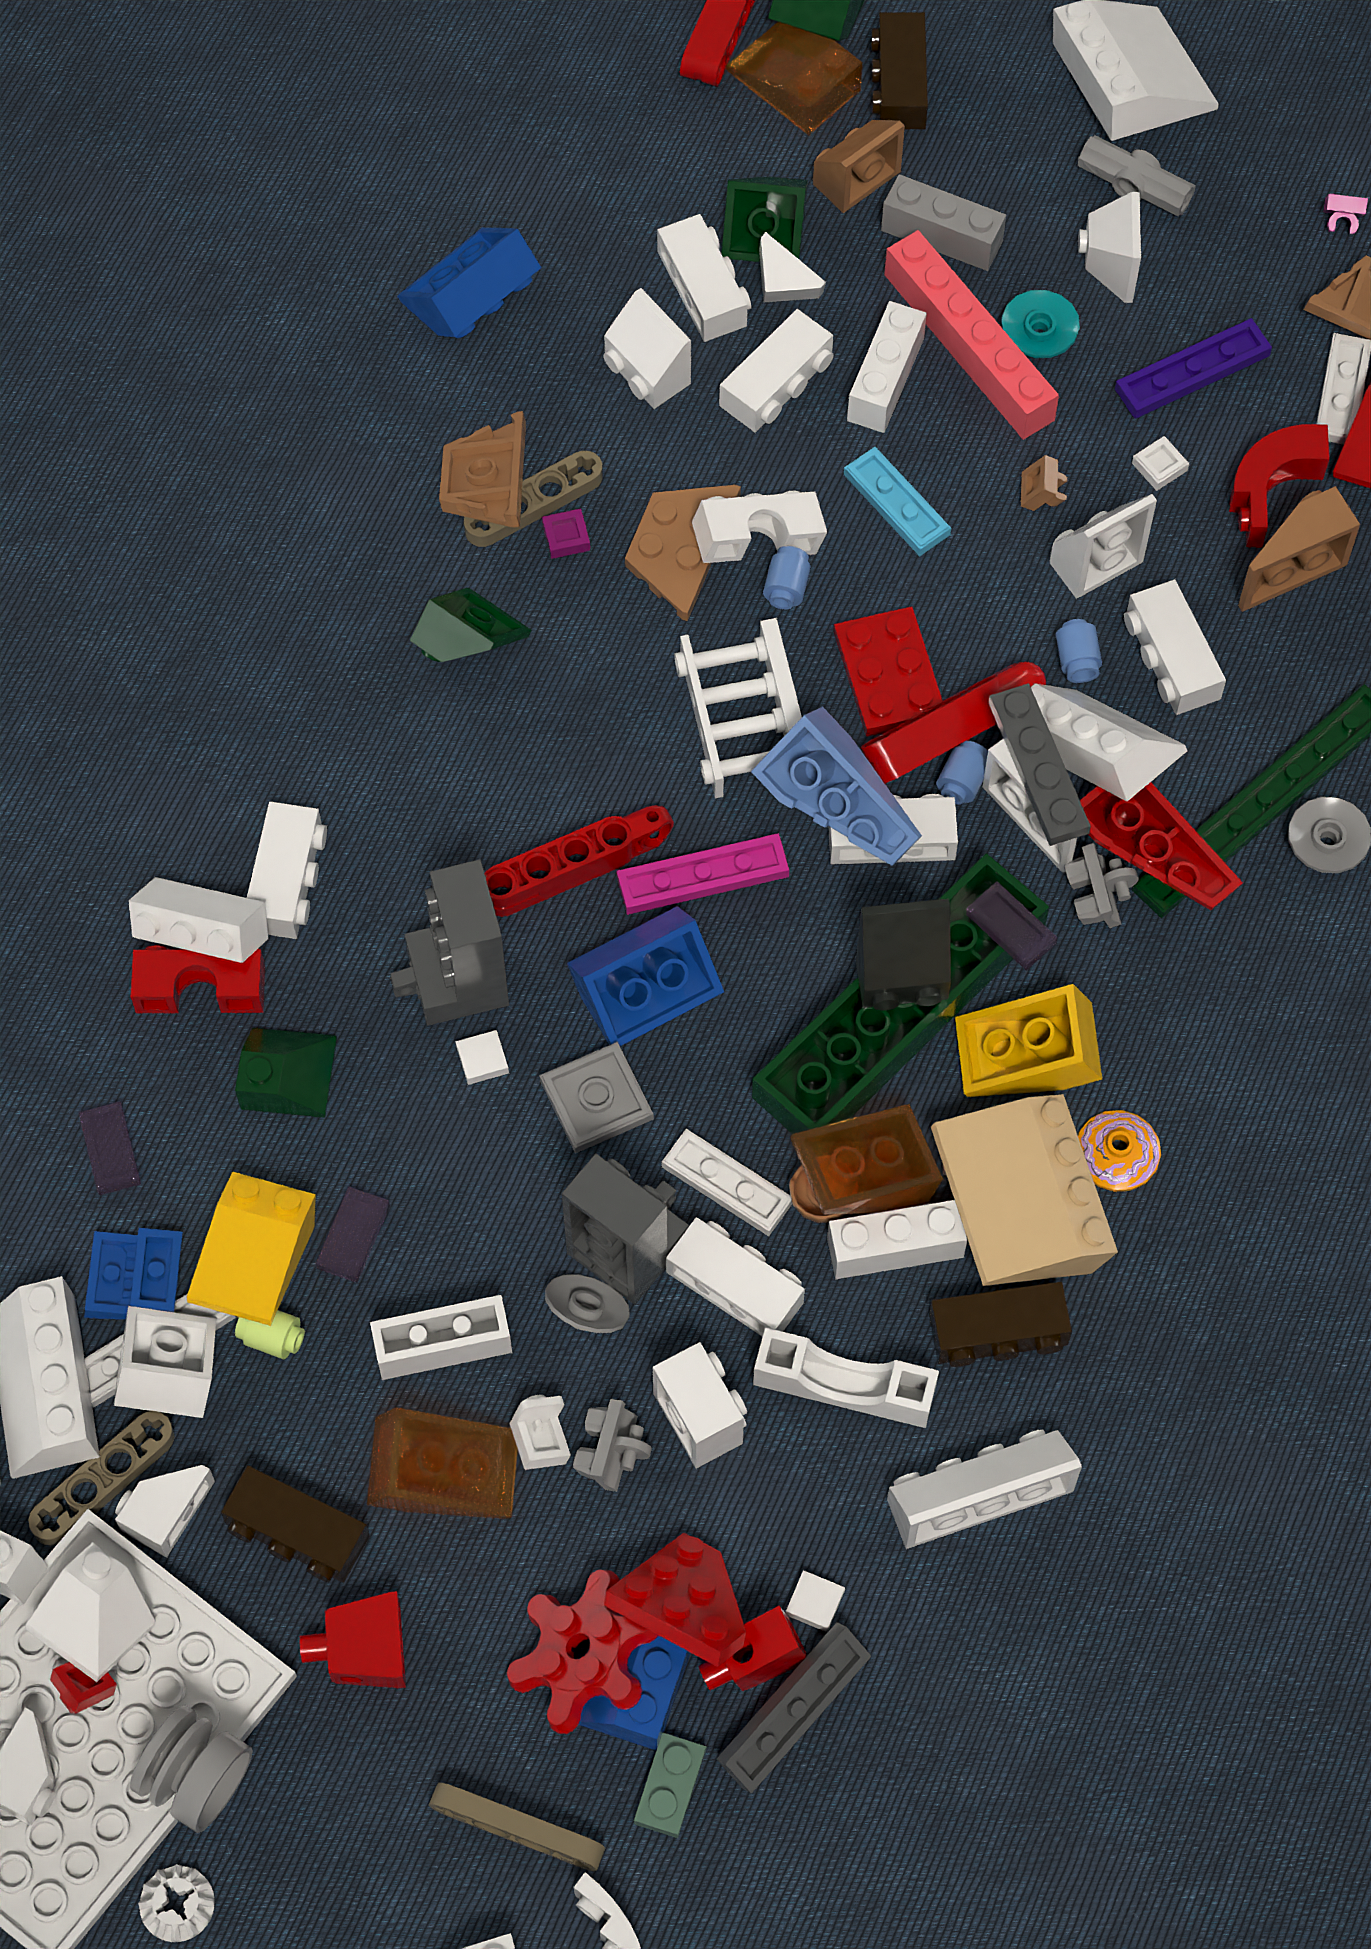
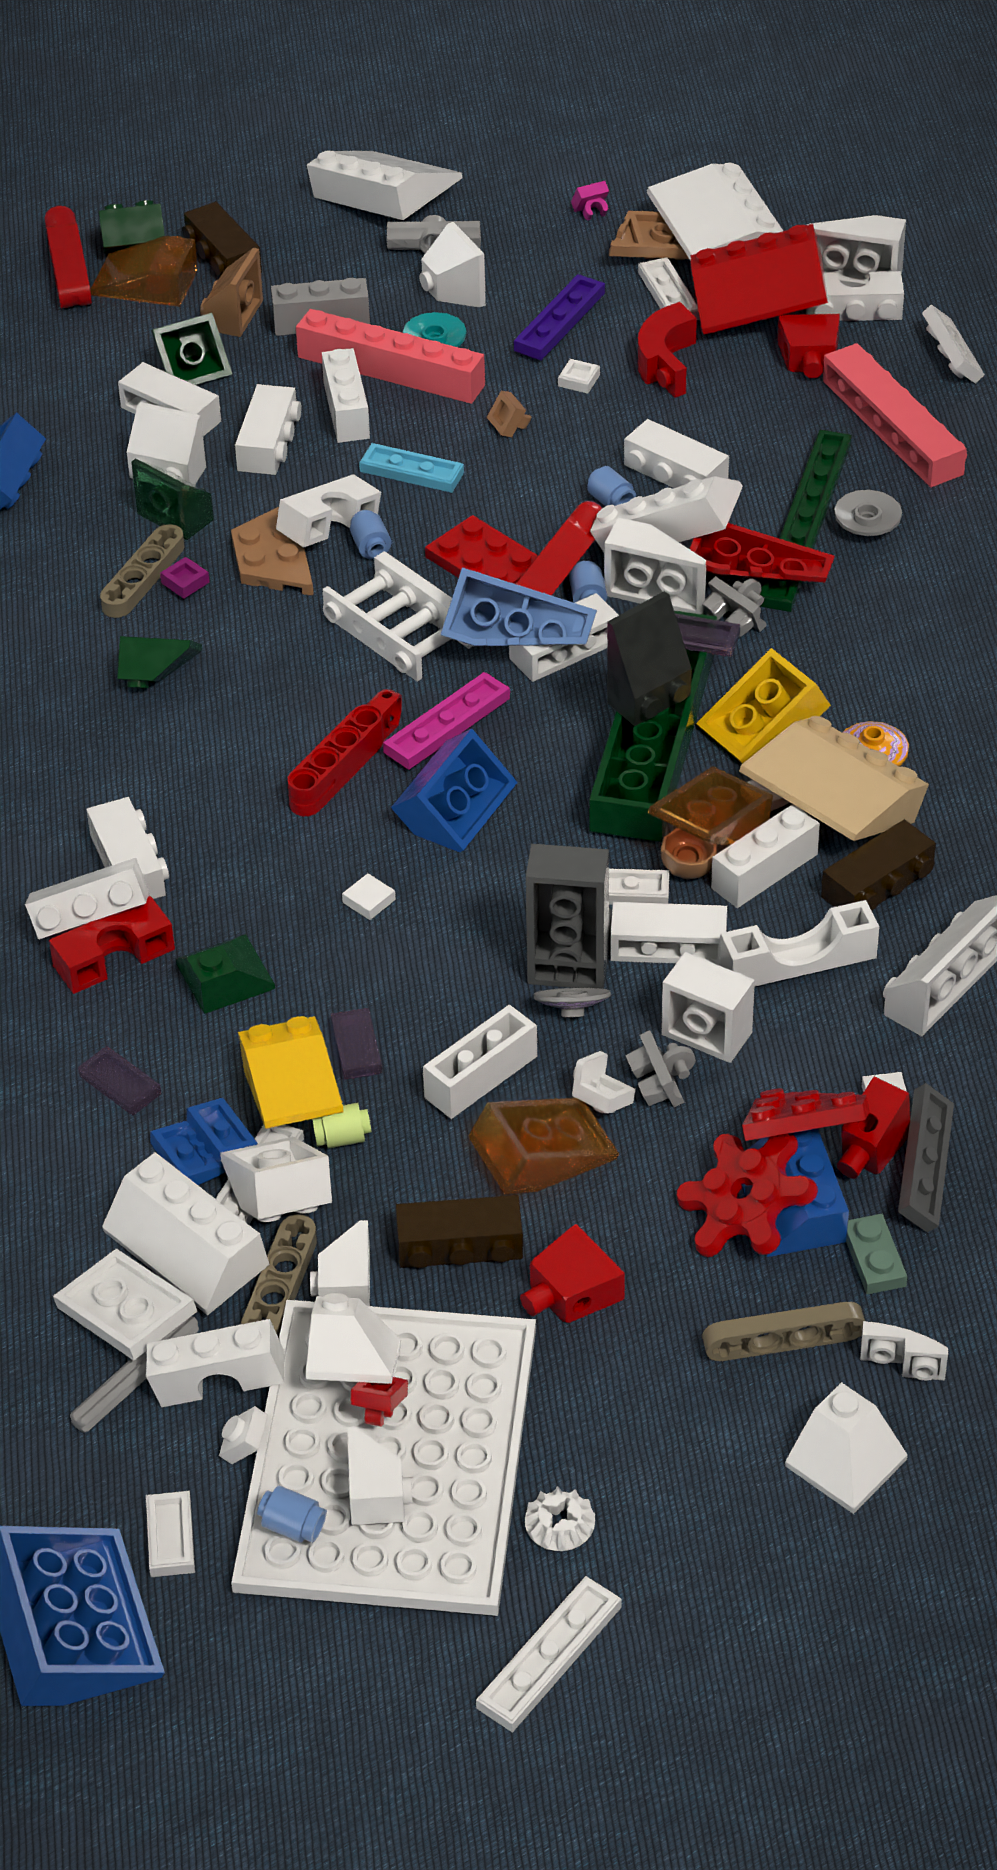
camera: 30 degrees left, 20 degrees down
(184, 1764) = (512, 1397): light grey wheel -> none
(460, 958) = (315, 813): dark grey hinge -> none
(485, 474) = (99, 564): medium nougat wing -> none
(596, 1097) = (475, 878): light grey plate -> none
(616, 421) = (170, 499): none -> clear green slope
(785, 275) = (229, 374): white slope -> none
(1039, 764) = (648, 532): dark grey plate -> none
(1103, 546) = (584, 419): white slope -> none
(1304, 548) = (723, 367): medium nougat slope -> none

